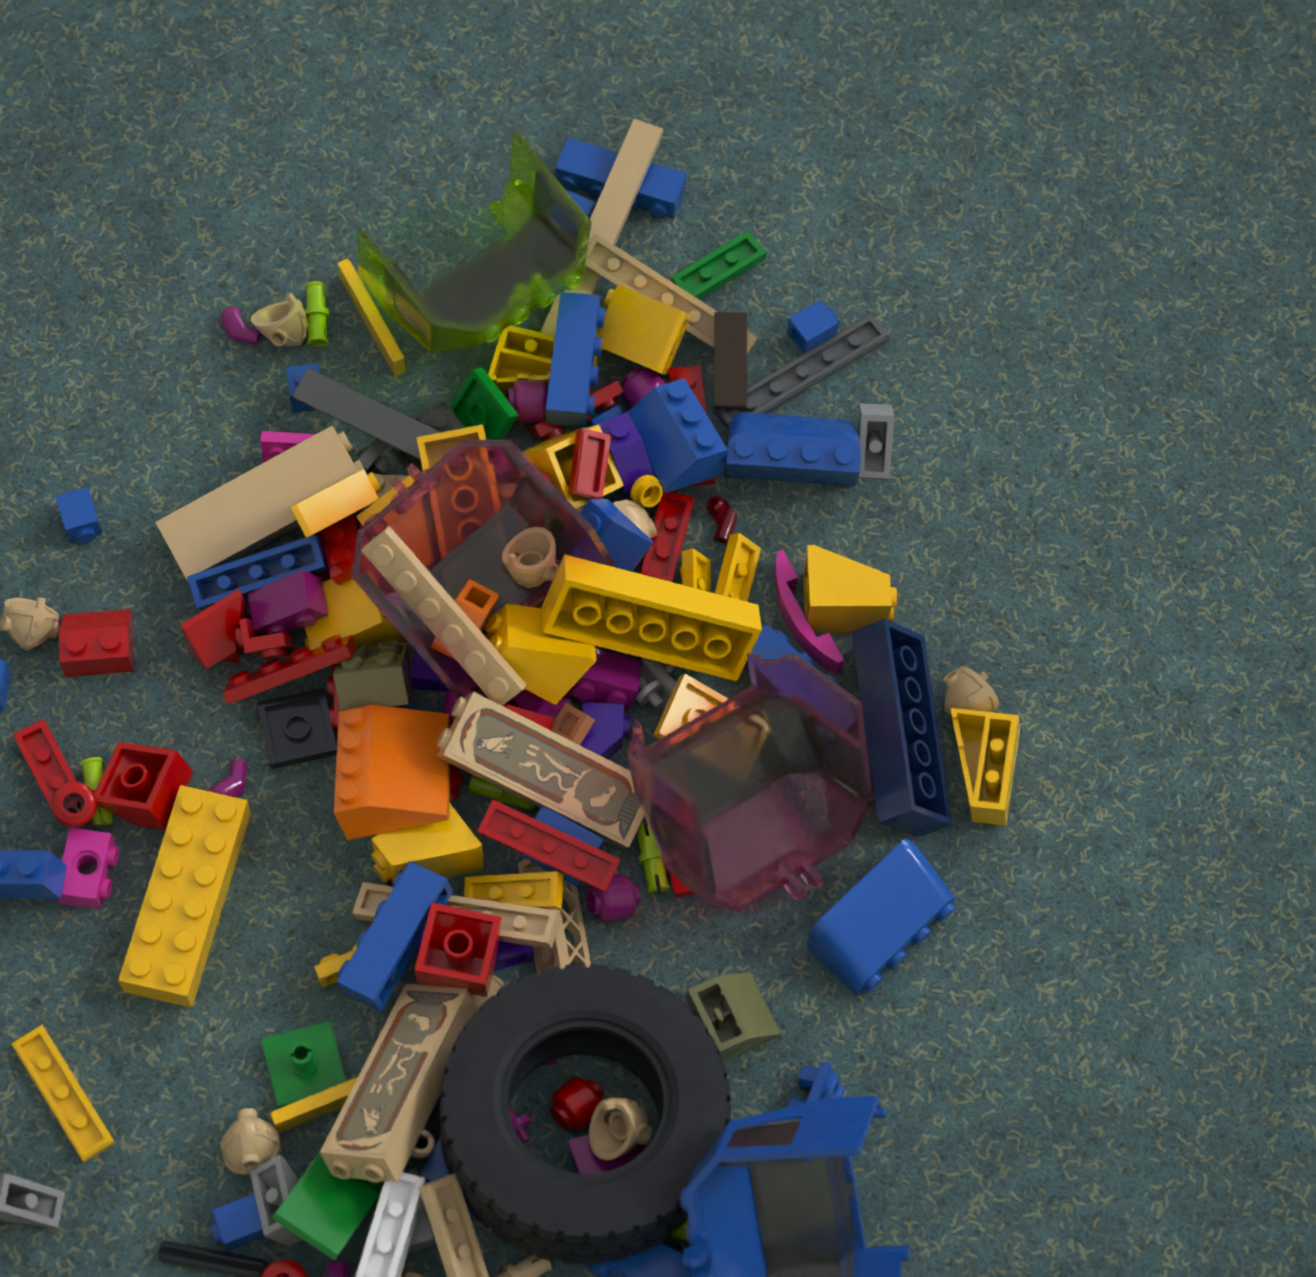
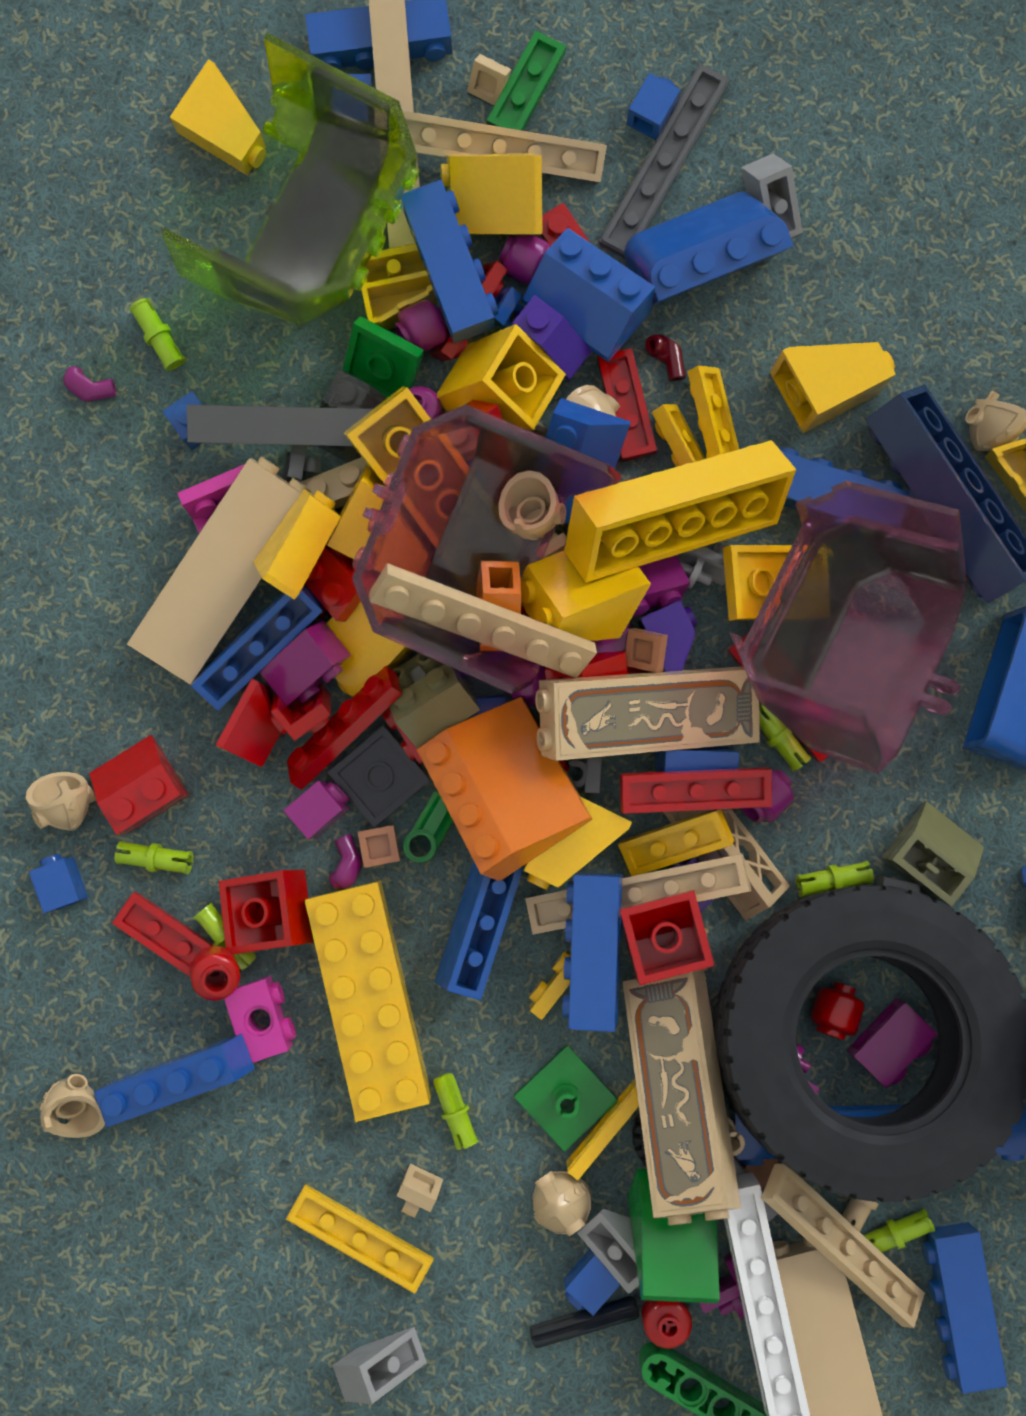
camera: 25 degrees left, 20 degrees up
(76, 702) = (154, 857): none -> lime pin
(79, 516) = (45, 667): blue brick -> none
(135, 1074) = (419, 1190): none -> tan tile
(204, 1026) = (455, 1111): none -> lime axle
(233, 722) = (318, 808): none -> magenta brick
(265, 782) = (379, 846): none -> nougat plate
(282, 322) = (129, 365): tan helmet -> none
(309, 882) = (476, 933): none -> blue brick
(316, 786) = (433, 824): none -> green piece
(371, 317) = (214, 310): yellow tile -> none
(456, 184) = (219, 122): none -> yellow slope
(475, 809) = (591, 774): none -> dark grey tile
(589, 464) = (528, 372): red tile -> none
(621, 1131) = (903, 1033): tan helmet -> none
(647, 491) = (591, 368): yellow plate -> none
(689, 247) = (487, 79): none -> tan tile
(730, 360) = (594, 182): dark brown tile -> none
(820, 648) = (834, 447): dark pink slope -> none

